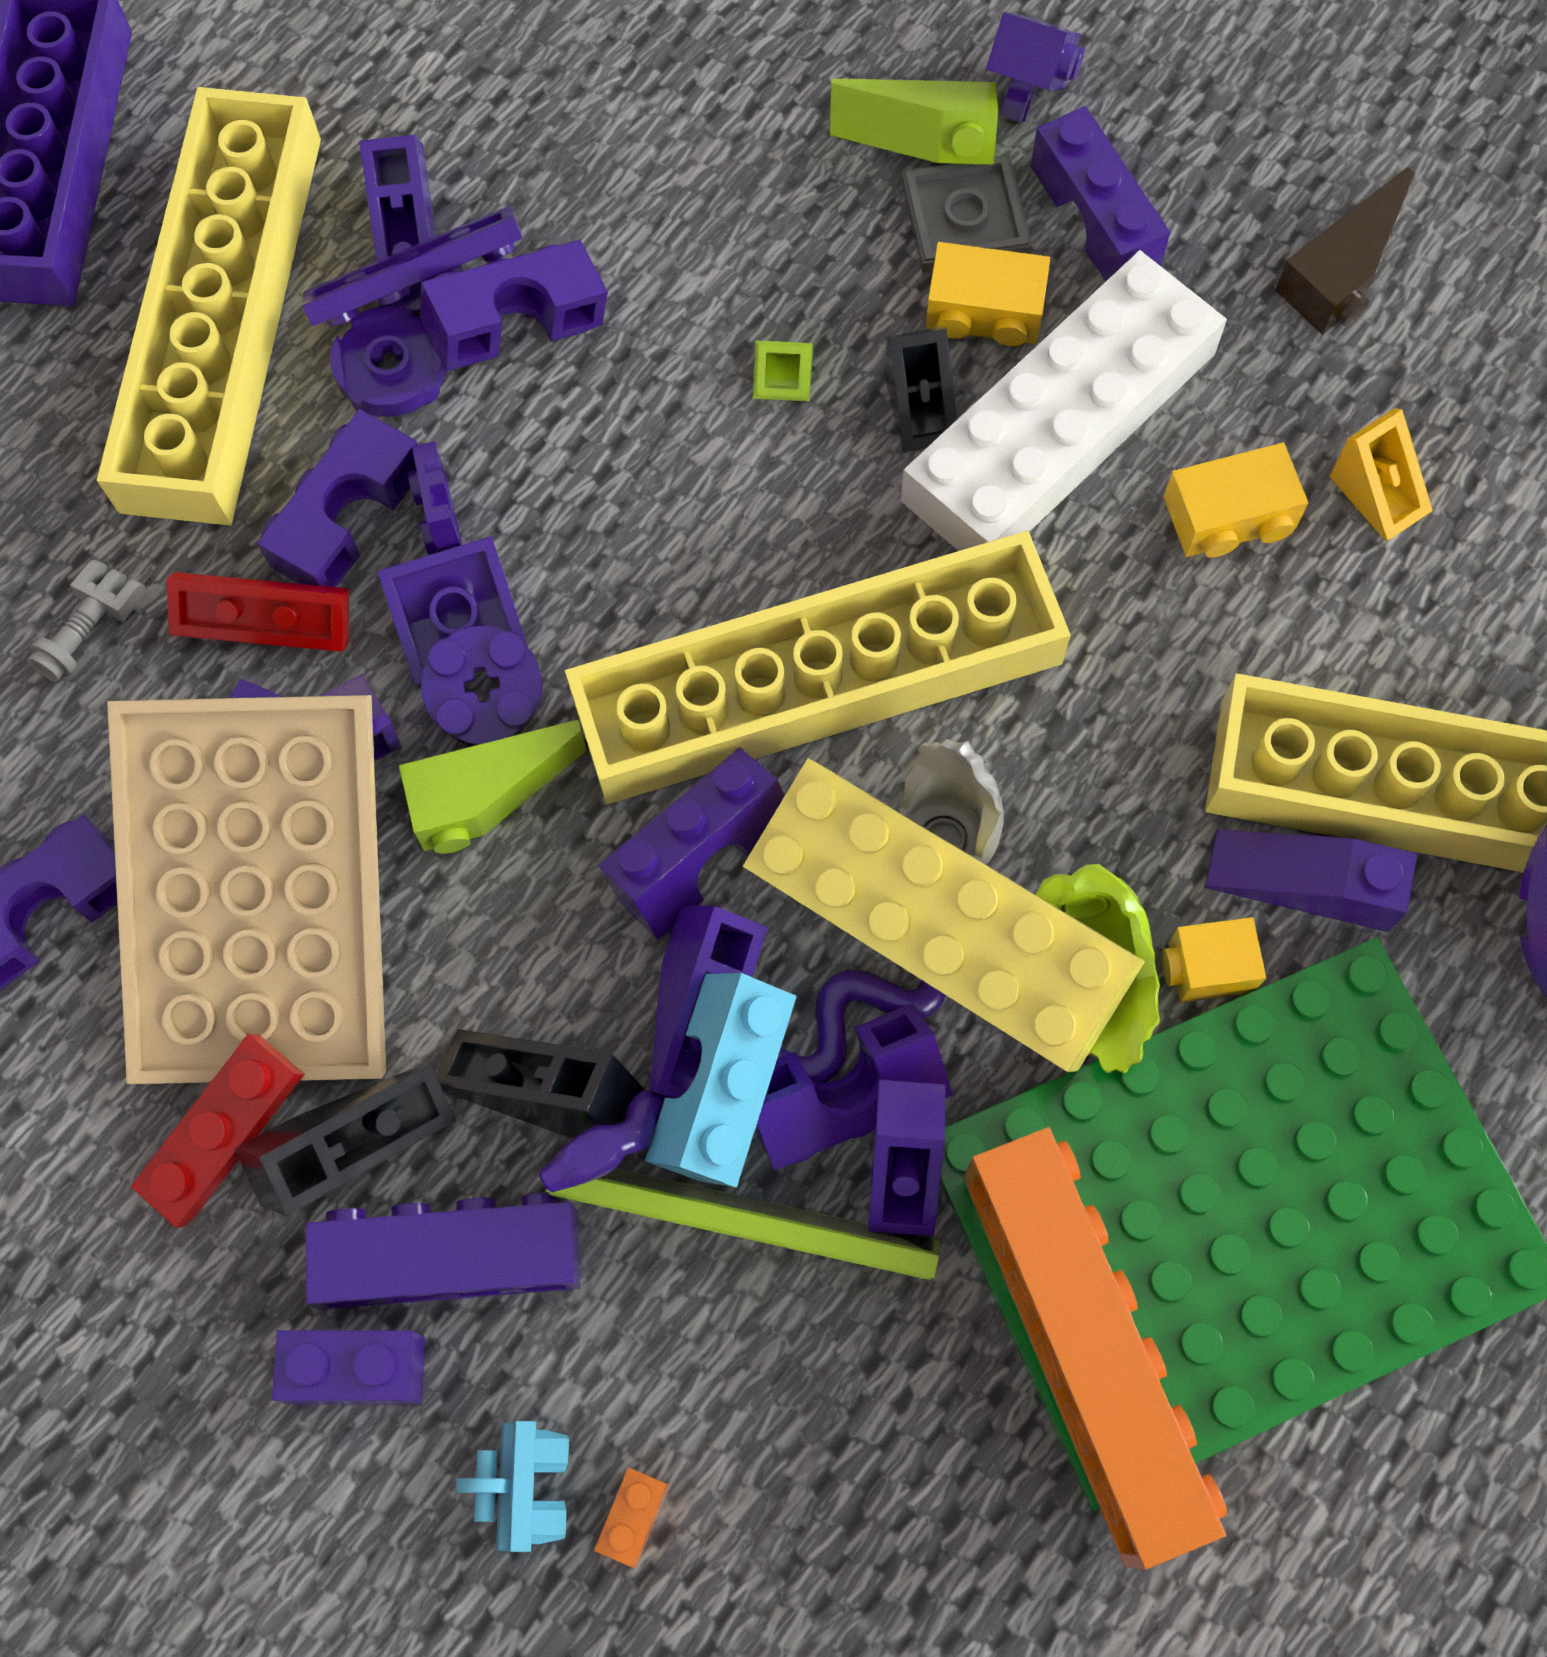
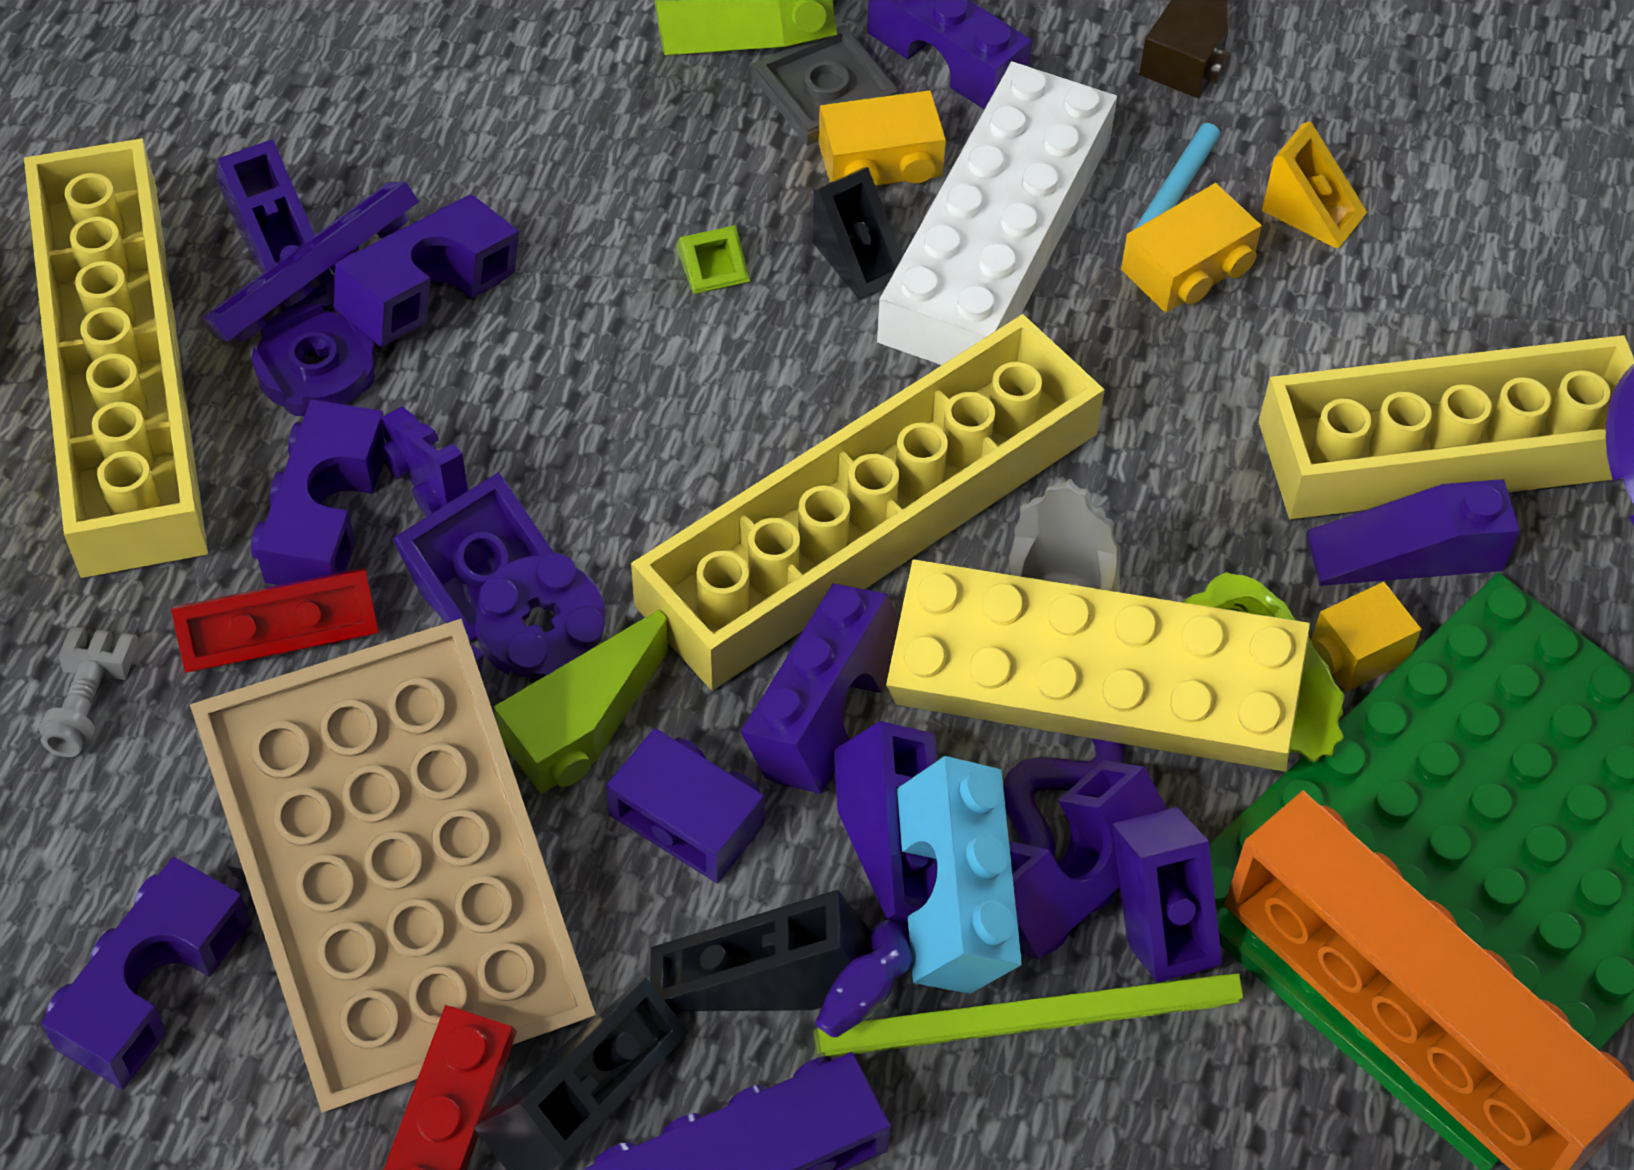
camera: 25 degrees left, 15 degrees down
(534, 909) = (686, 804): none -> dark purple brick
(1262, 417) = (1183, 172): none -> medium azure bar

